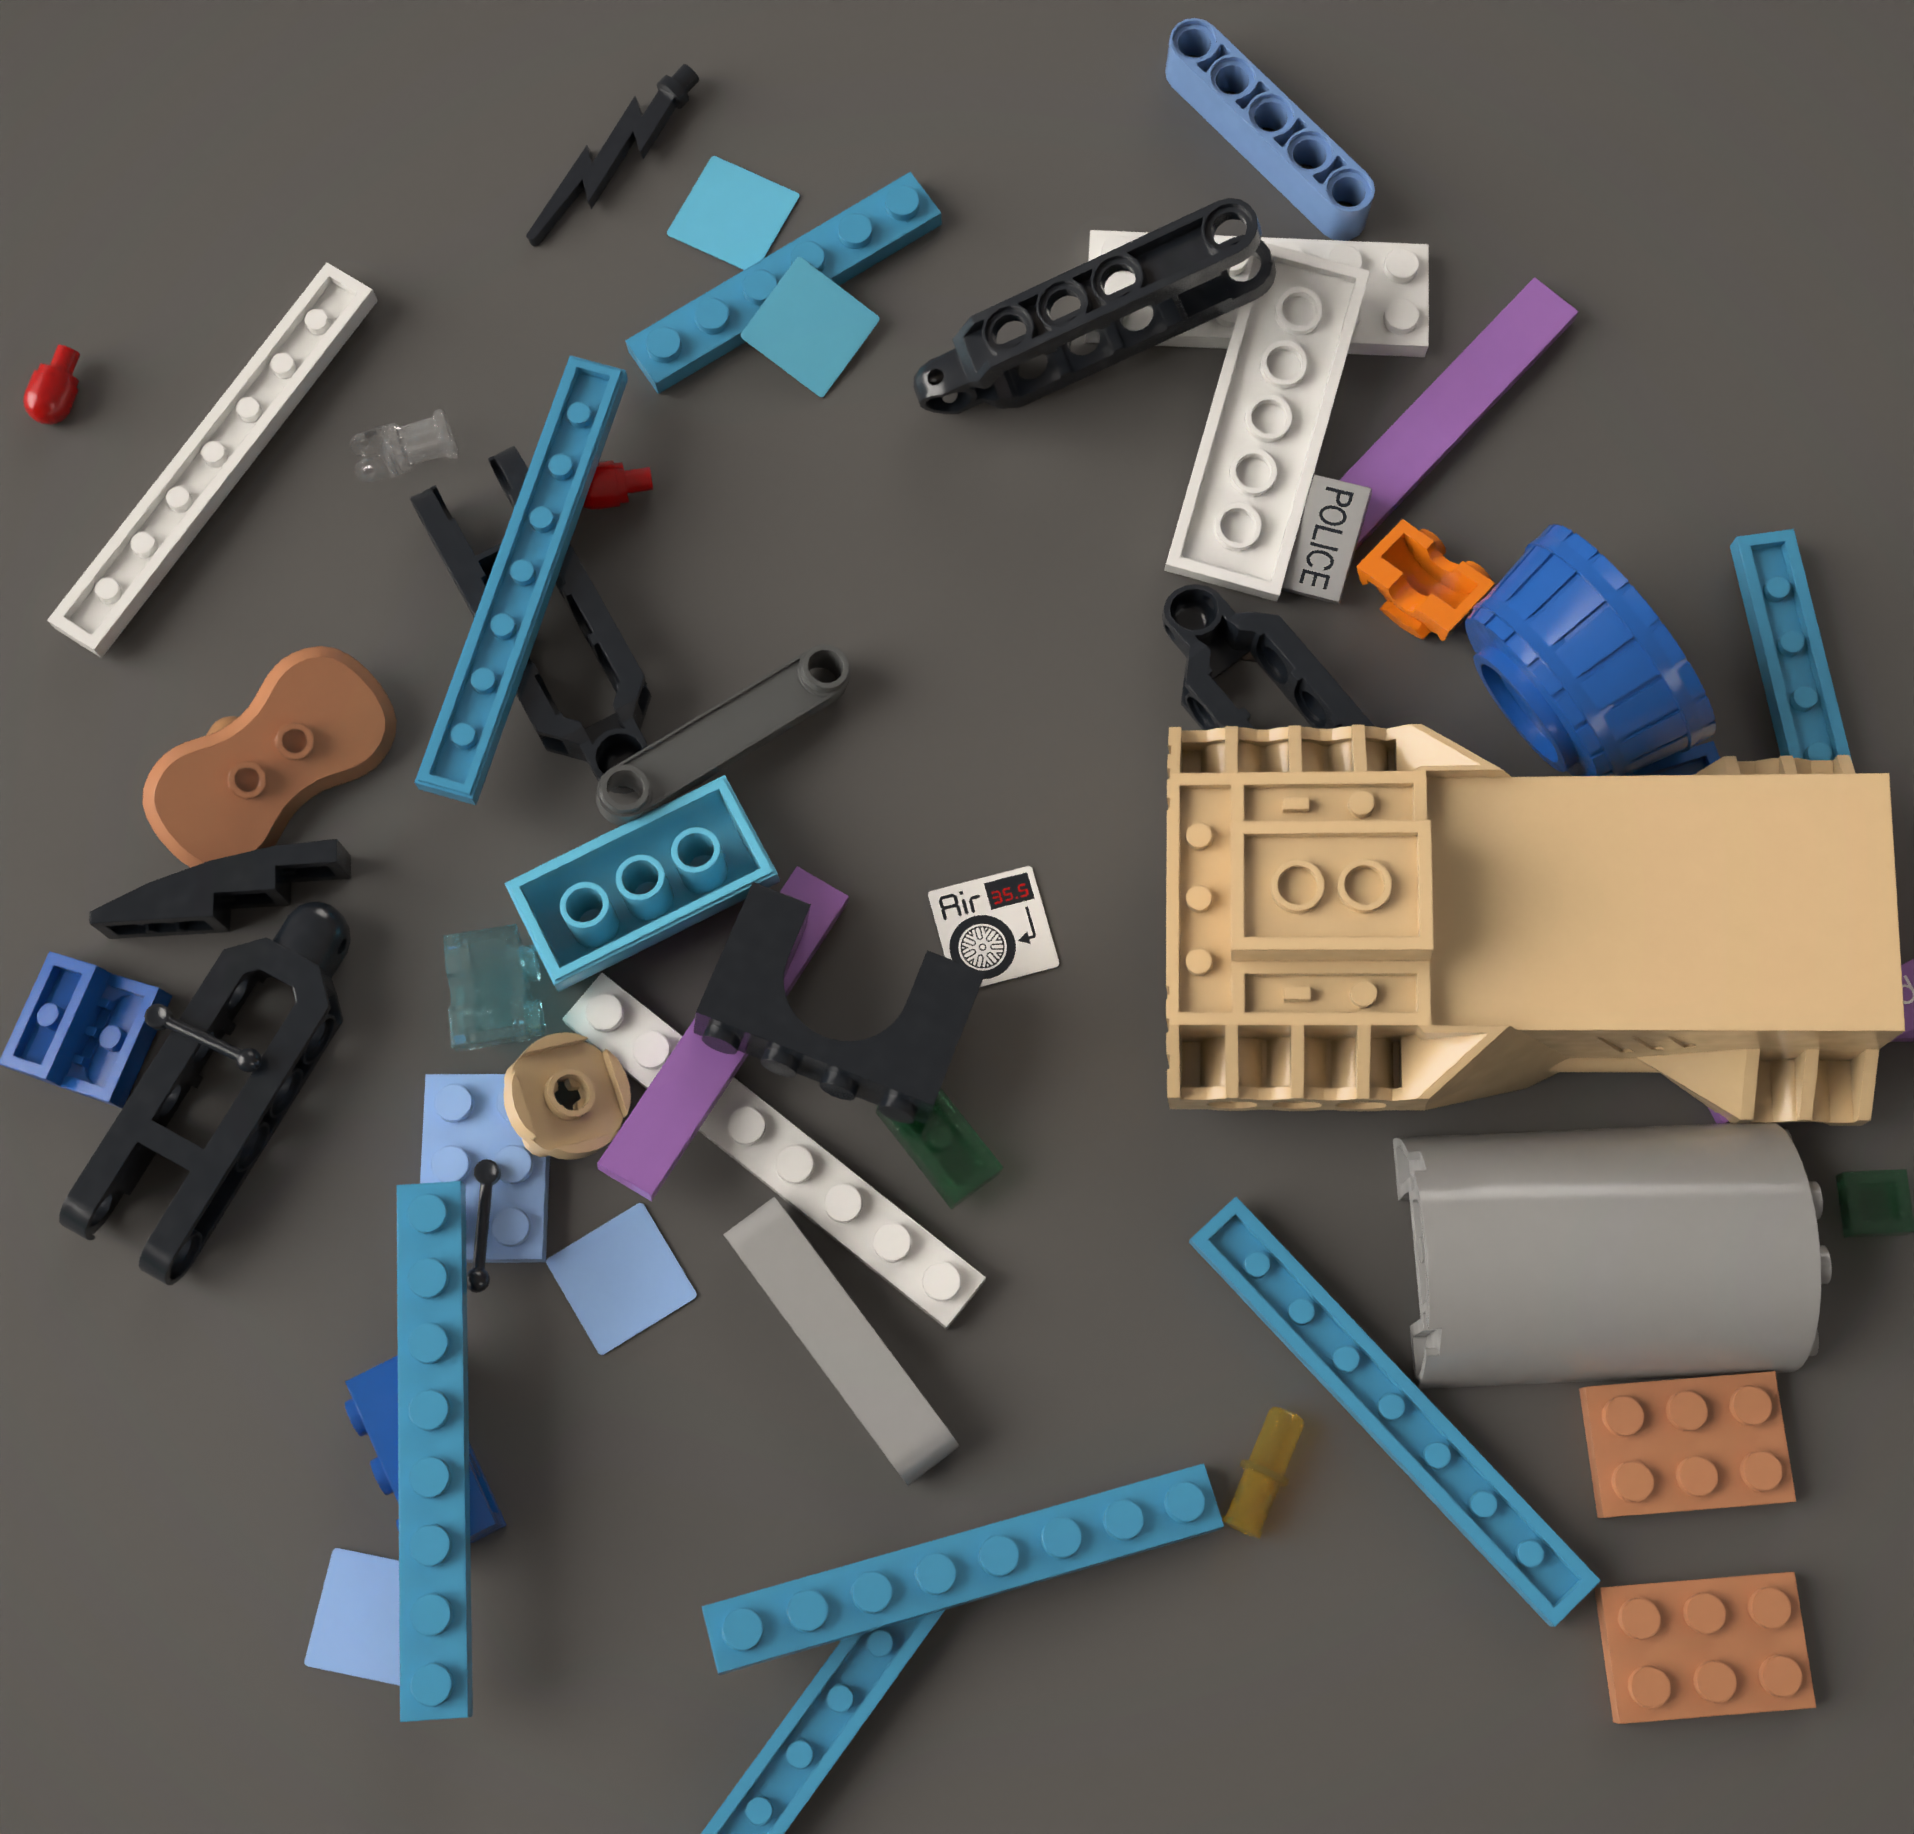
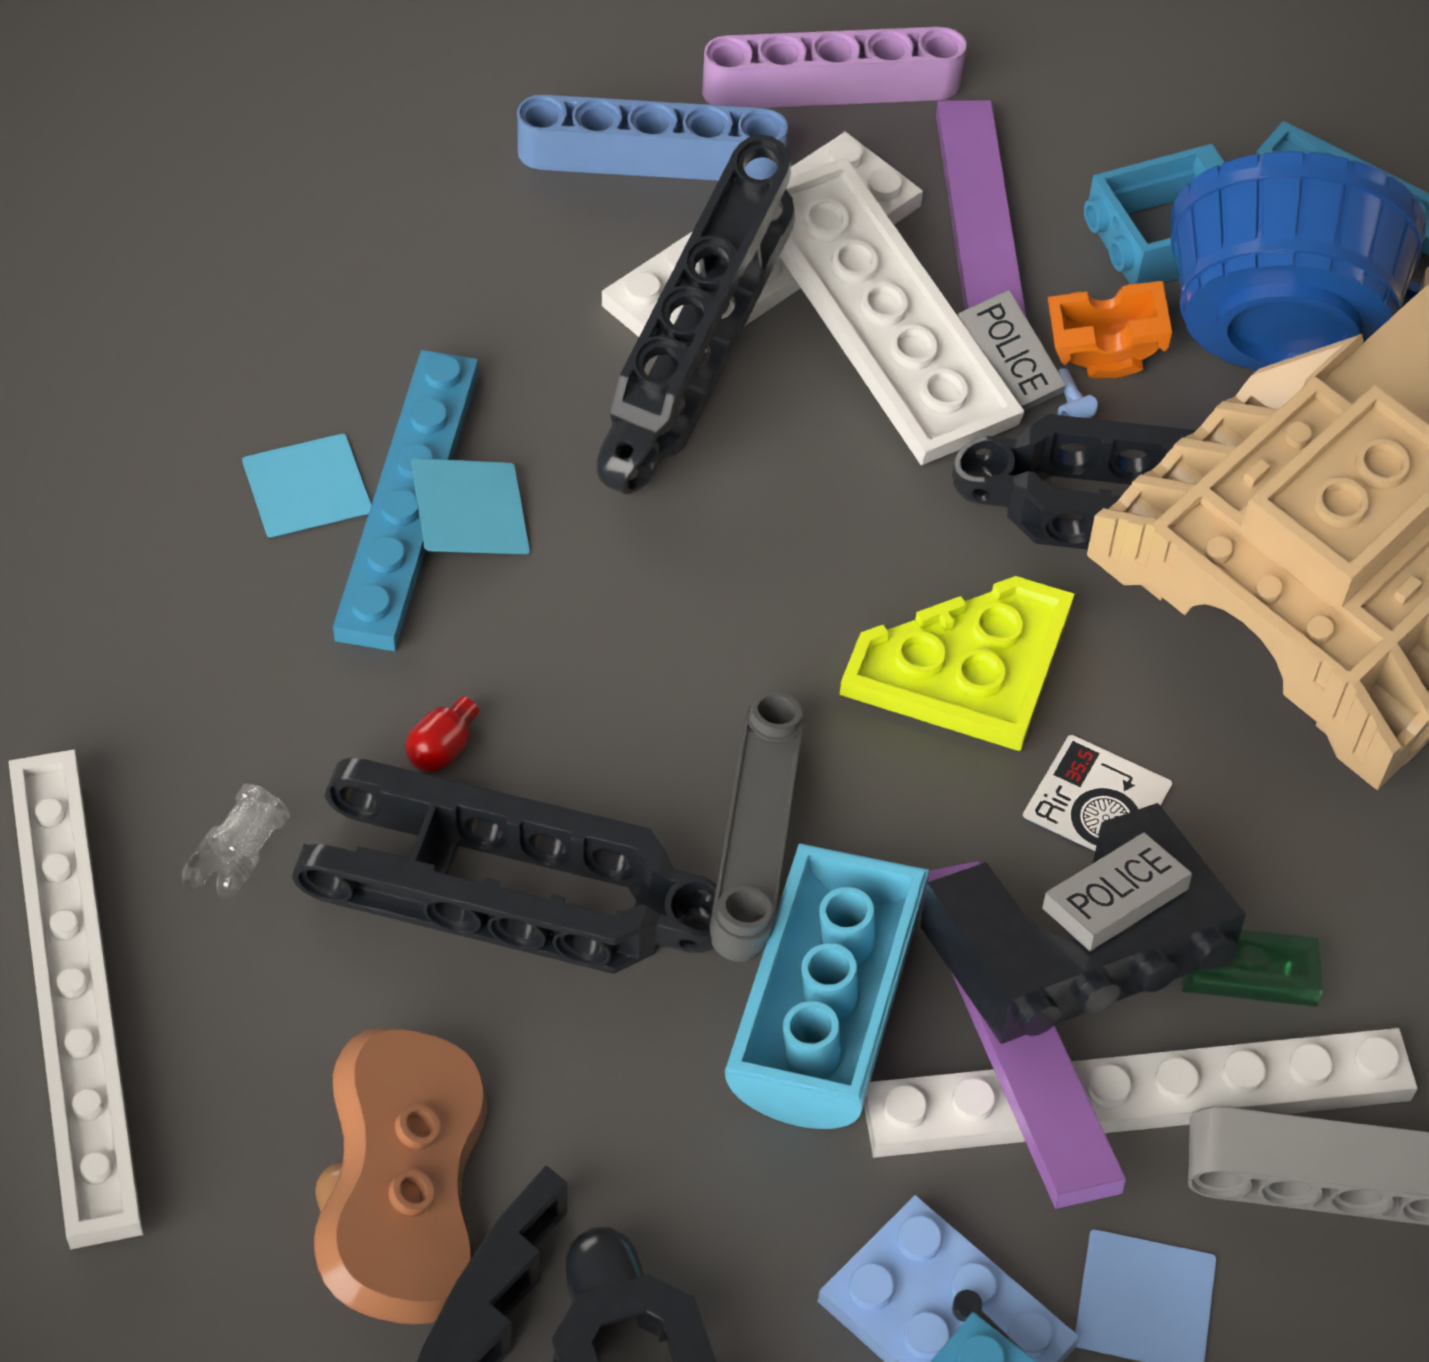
camera: 50 degrees left, 20 degrees down
(492, 988) = (798, 1175): clear light blue cylinder -> none
(521, 581) = (479, 846): dark azure tile -> none
(546, 1124) = (971, 1218): tan plate -> none
(631, 127) = (163, 437): black piece -> none
(859, 1008) = (1117, 891): none -> light grey tile
(1014, 748) = (966, 662): none -> neon yellow plate
(1327, 633) = (1076, 404): none -> light blue hand
(1491, 205) = (833, 67): none -> lavender beam
(1609, 491) = (1135, 189): none -> dark azure window

